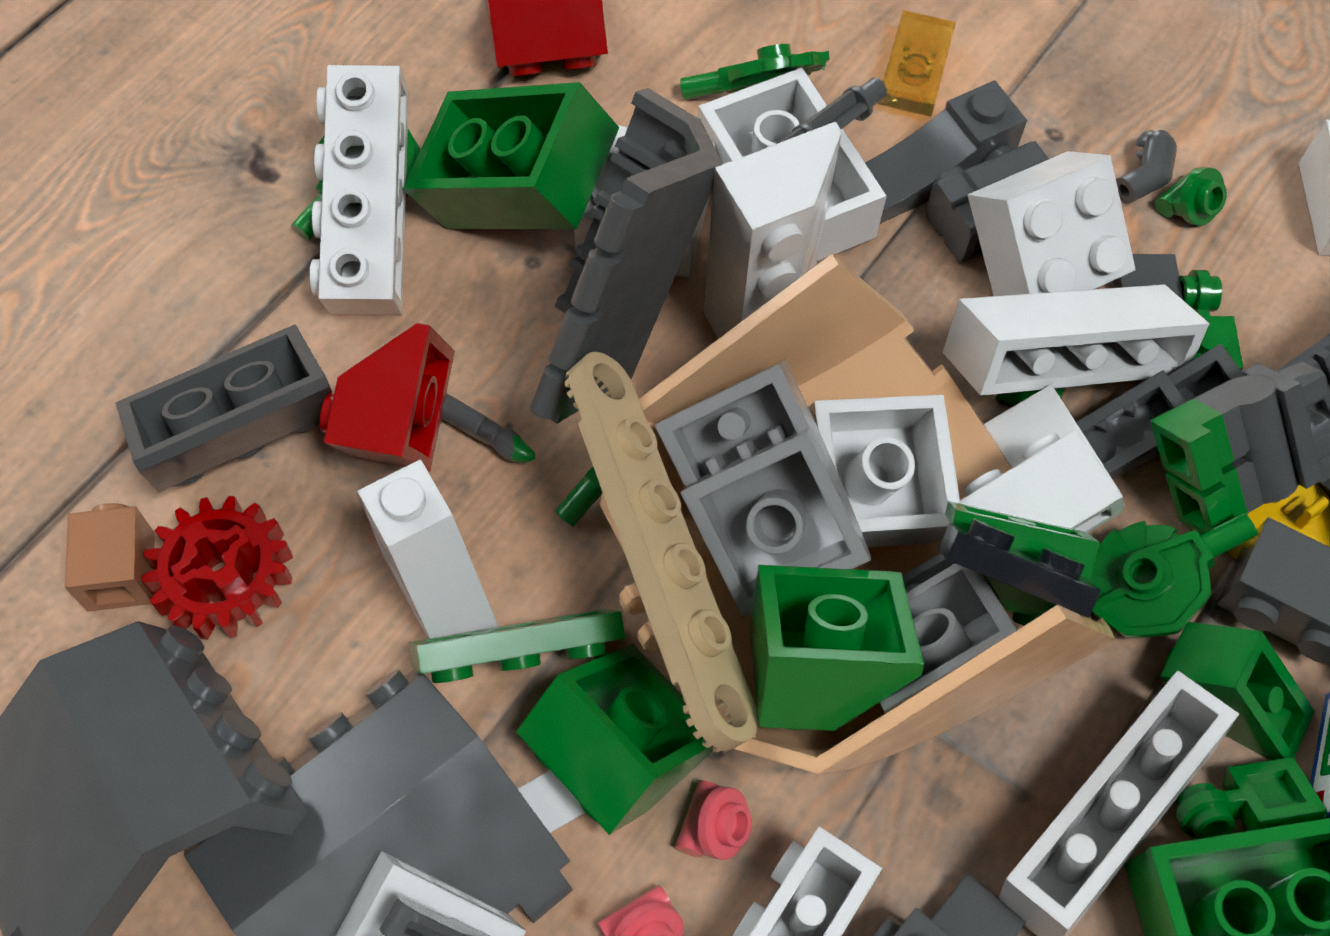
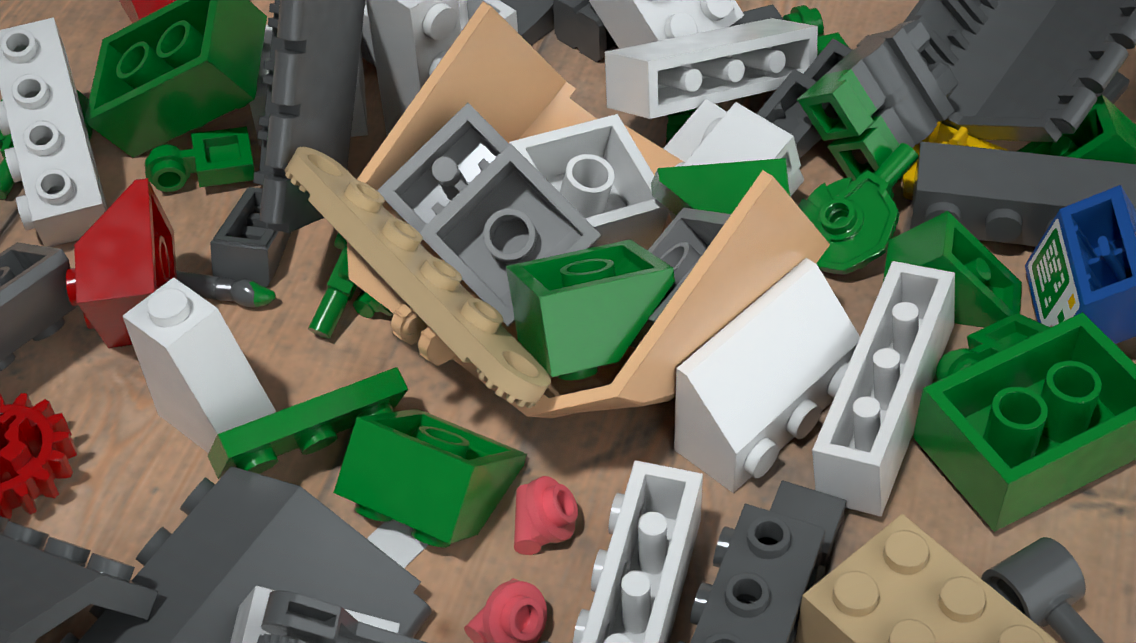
camera: 15 degrees left, 15 degrees down
(506, 395) = (245, 246): none -> dark grey slope
(527, 267) = (216, 156): none -> green plate
(995, 759) = (763, 378): none -> white slope
(1049, 577) = (698, 185): black plate -> none

